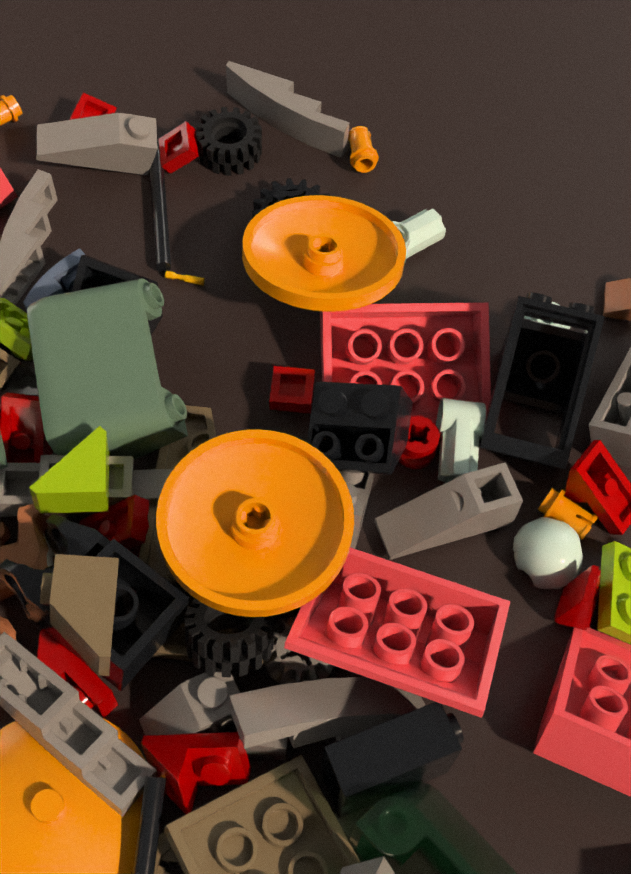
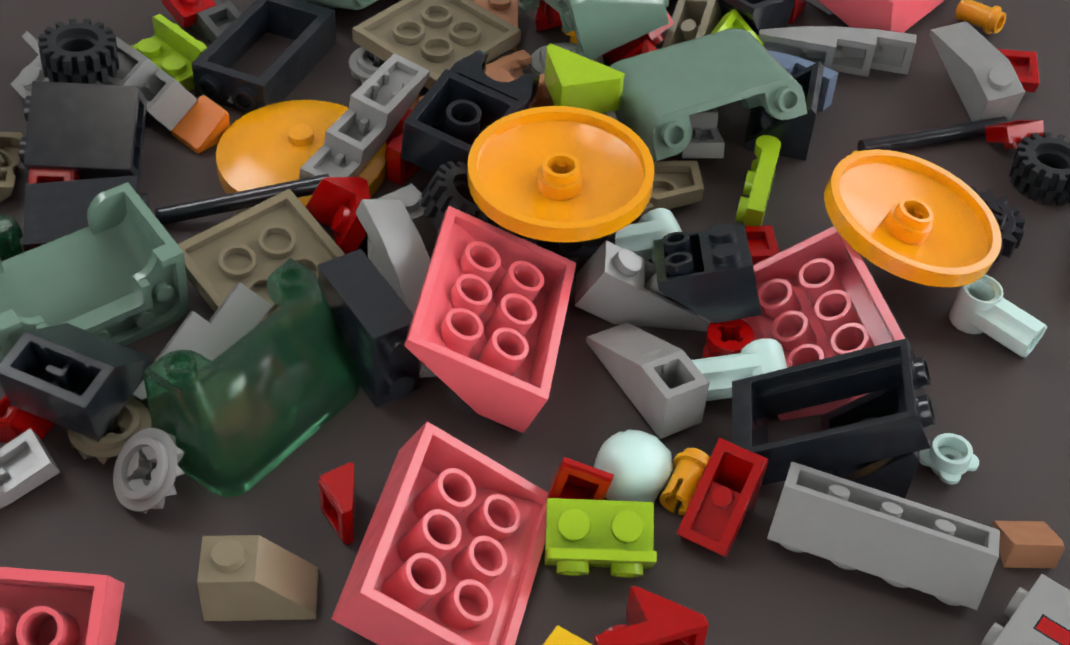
camera: 80 degrees right, 15 degrees down
(83, 605) = (445, 79): dark tan slope -> none
(216, 361) = (759, 181): none -> lime plate
(589, 815) = (338, 500): none -> red slope

